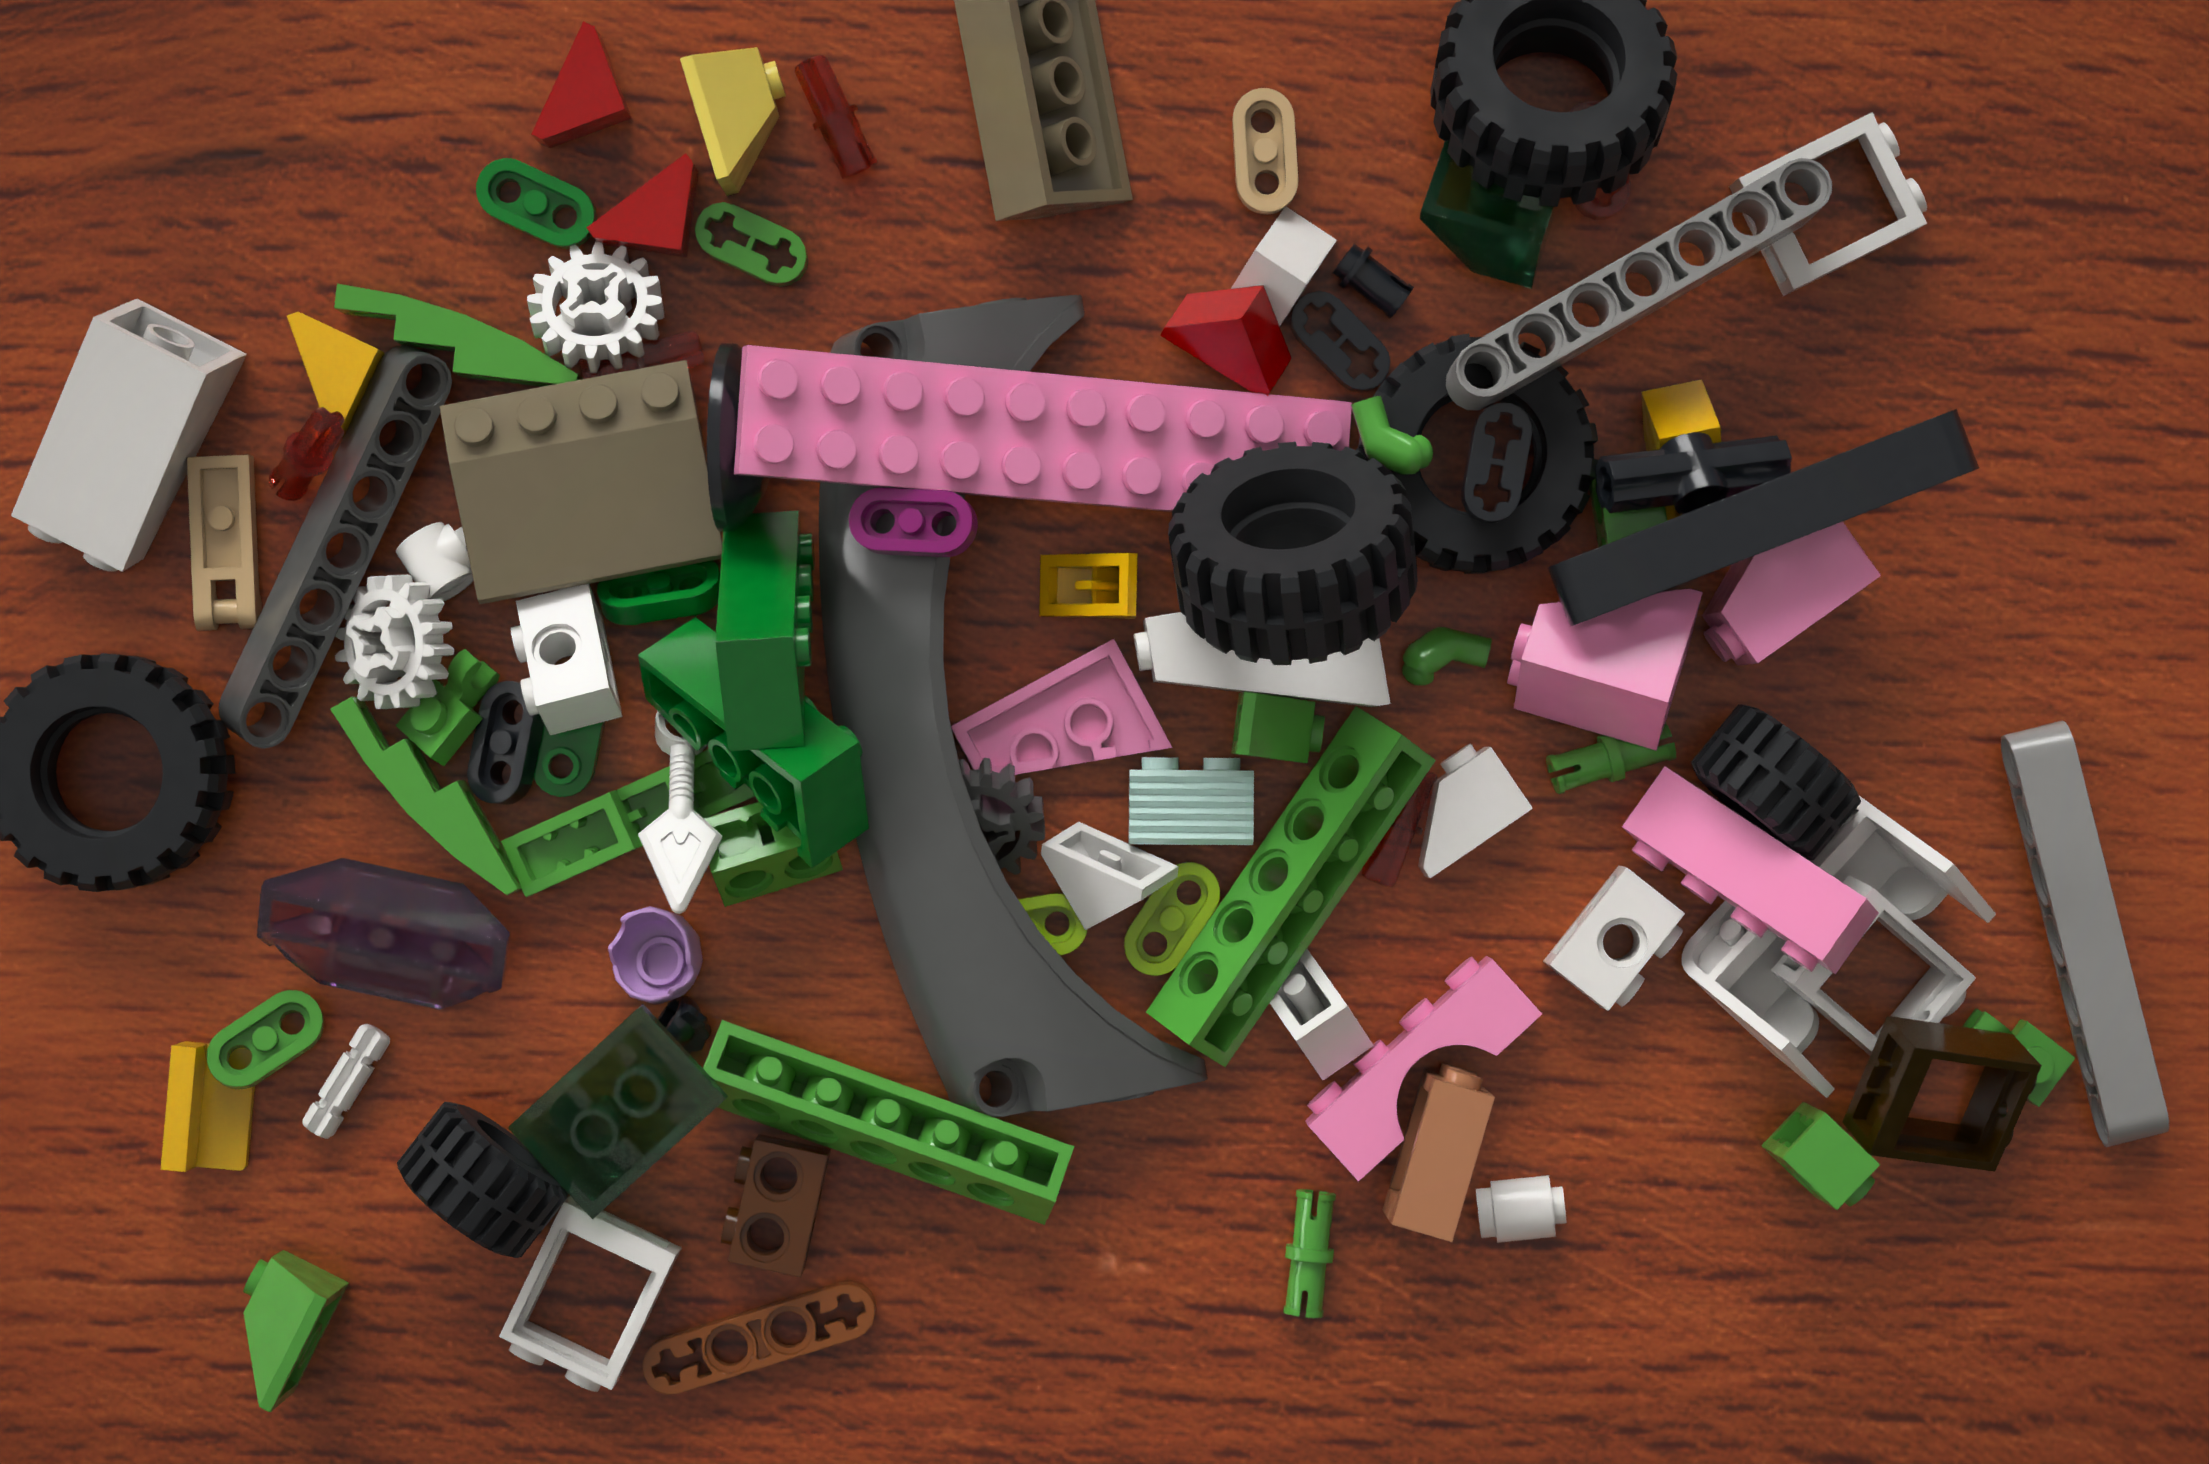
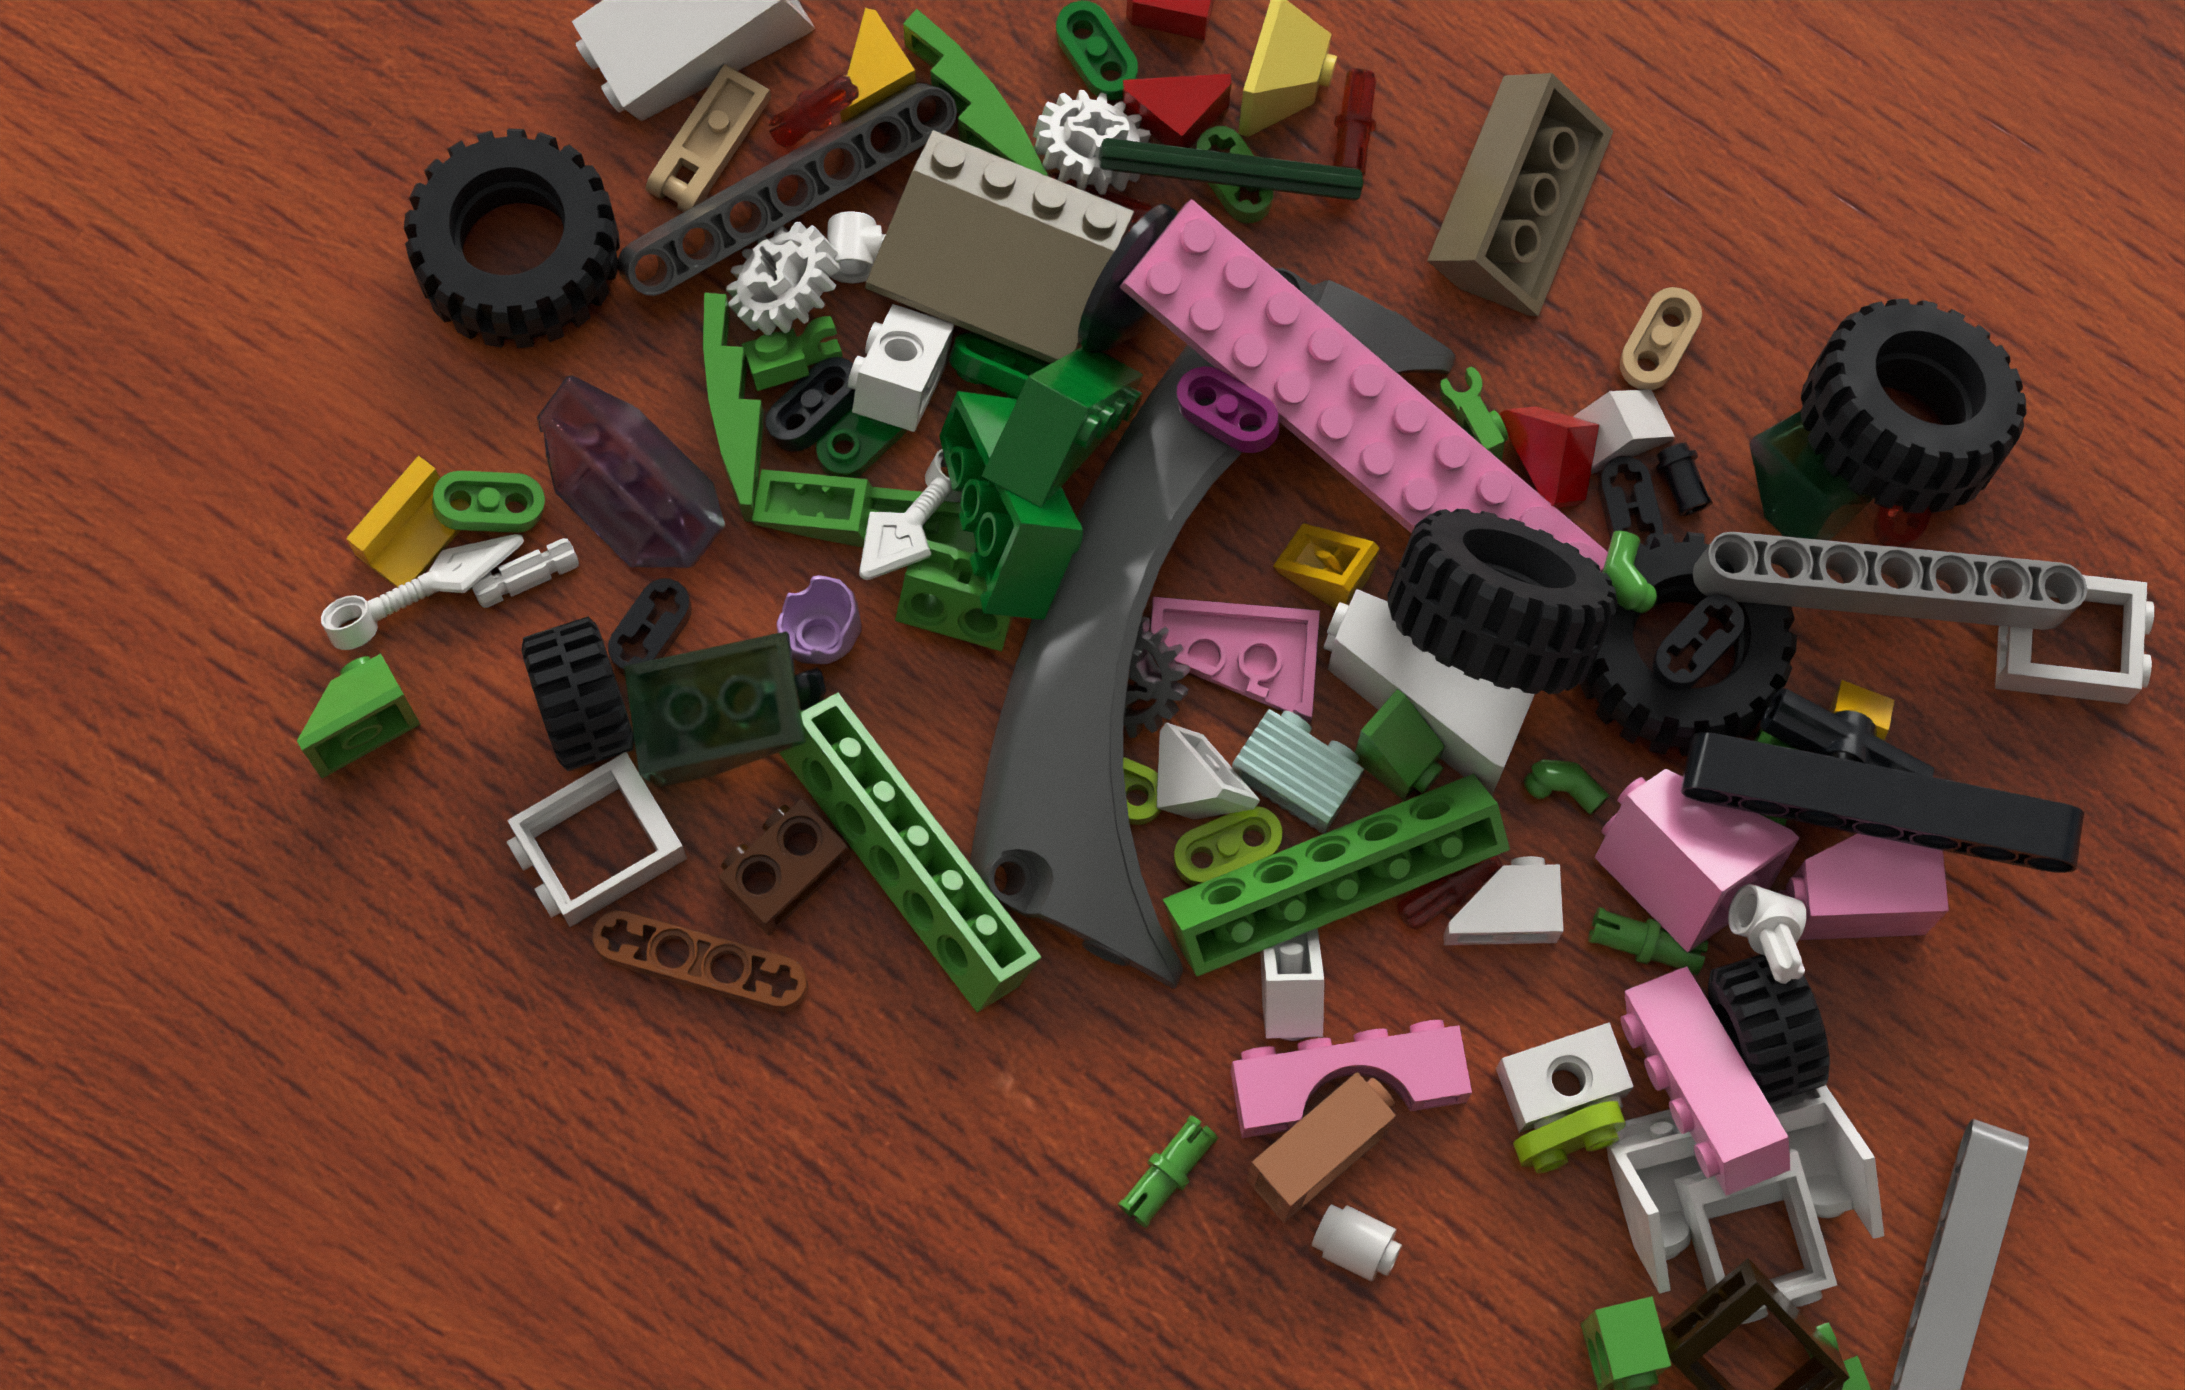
camera: 30 degrees right, 15 degrees down
(280, 1127) = (453, 571): none -> white piece
(484, 1057) = (640, 619): none -> black beam
(749, 253) = (1230, 169): none -> dark green axle
(1153, 357) = (1473, 415): none -> bright green plate
(1670, 975) = (1588, 1128): none -> lime plate
(1729, 696) = (1772, 928): none -> white axle

